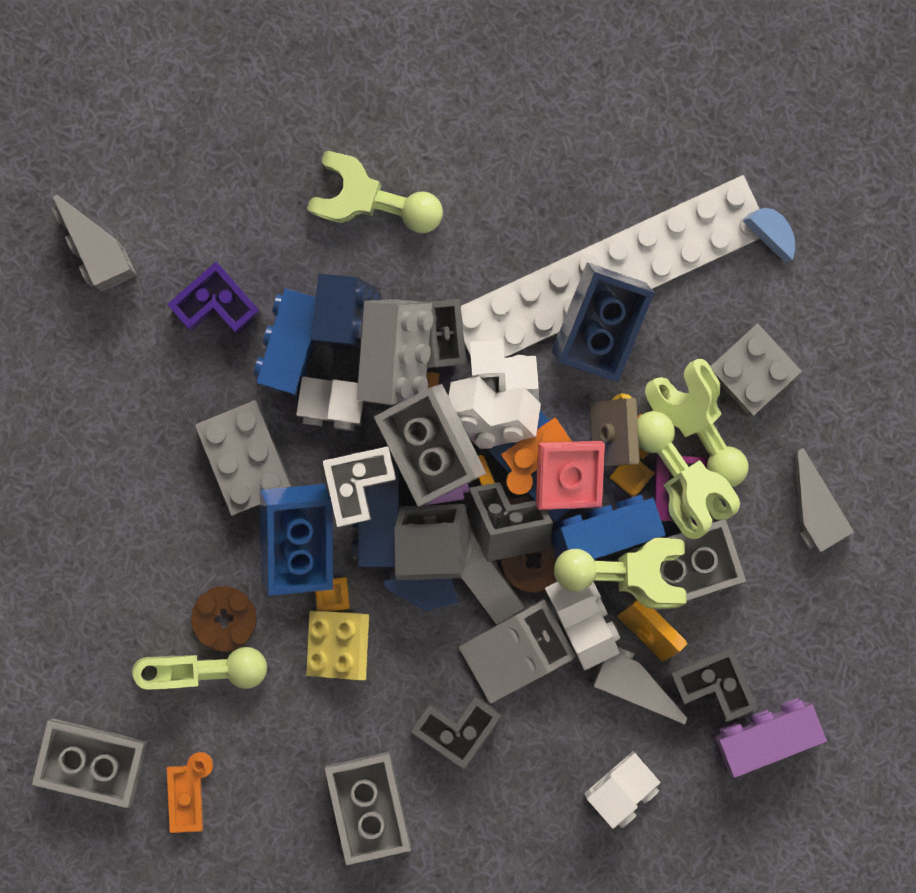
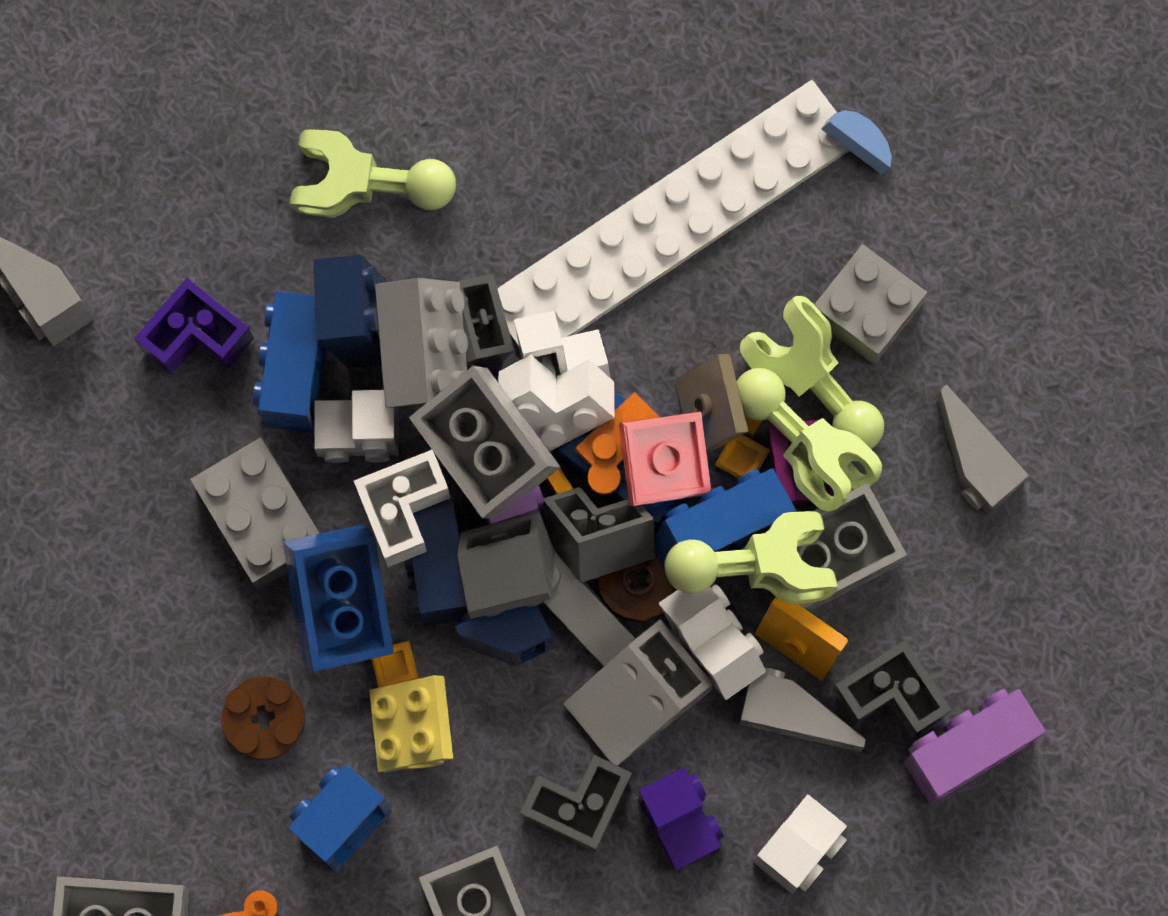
camera: 10 degrees left, 10 degrees down
(243, 668) = (222, 787): yellowish green piece -> none
(271, 714) = (339, 816): none -> blue brick
(533, 755) = (678, 818): none -> dark purple brick
(602, 322) = (672, 273): dark blue brick -> none

